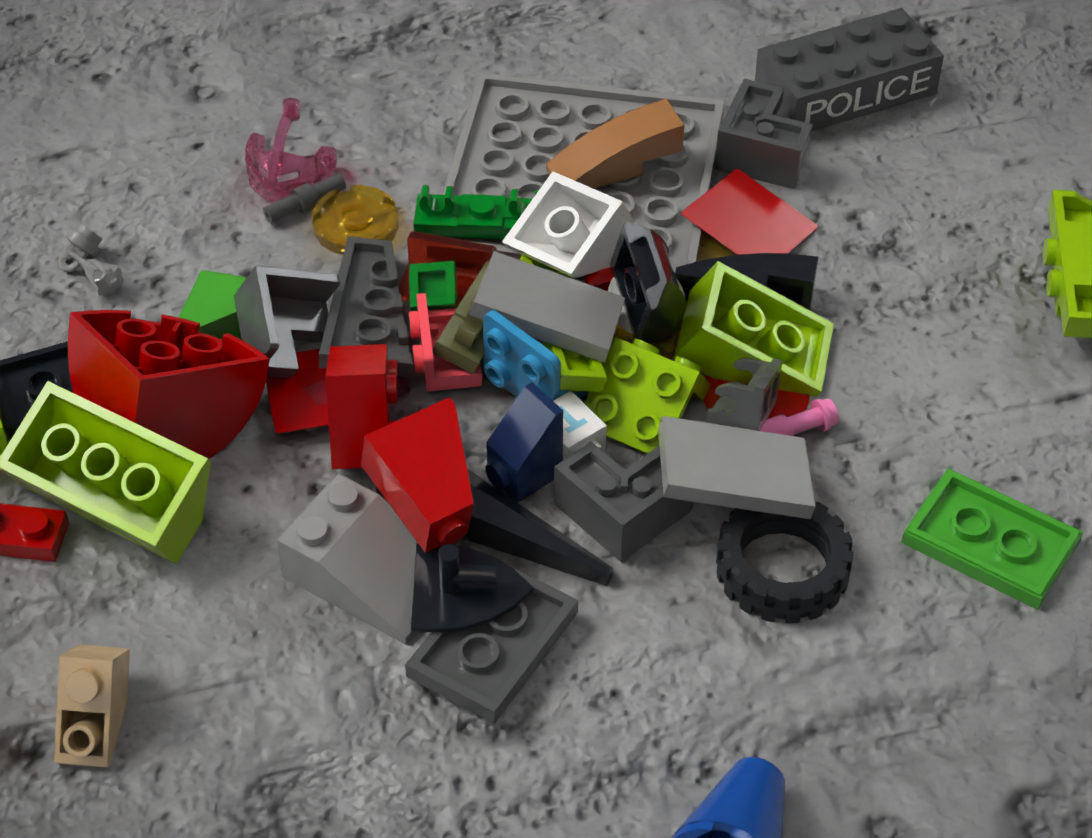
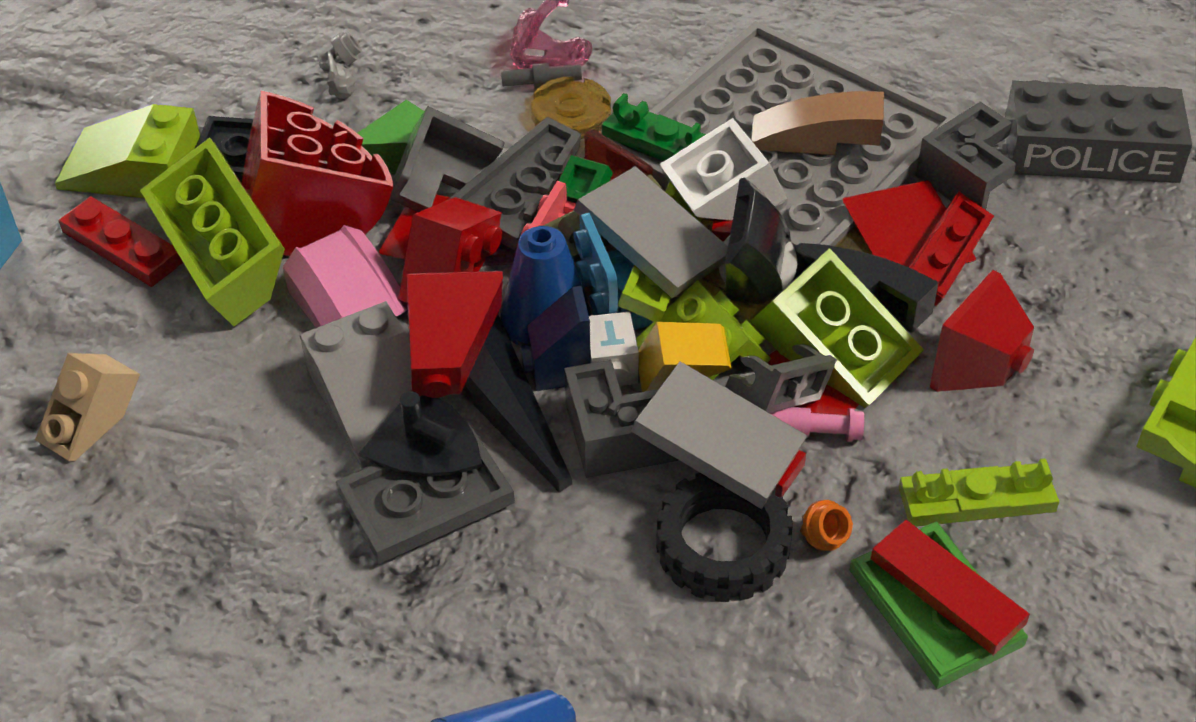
camera: 30 degrees right, 0 degrees up
(264, 477) = (340, 277): none -> bright pink slope
(480, 391) = (538, 278): none -> blue cone
(637, 412) = (694, 344): none -> yellow slope
(792, 215) = (951, 242): none -> red tile
(865, 511) = (826, 525): none -> orange plate
(890, 293) = (983, 339): none -> red slope
(962, 430) = (978, 493): none -> lime plate
(1001, 517) = (950, 587): none -> red tile

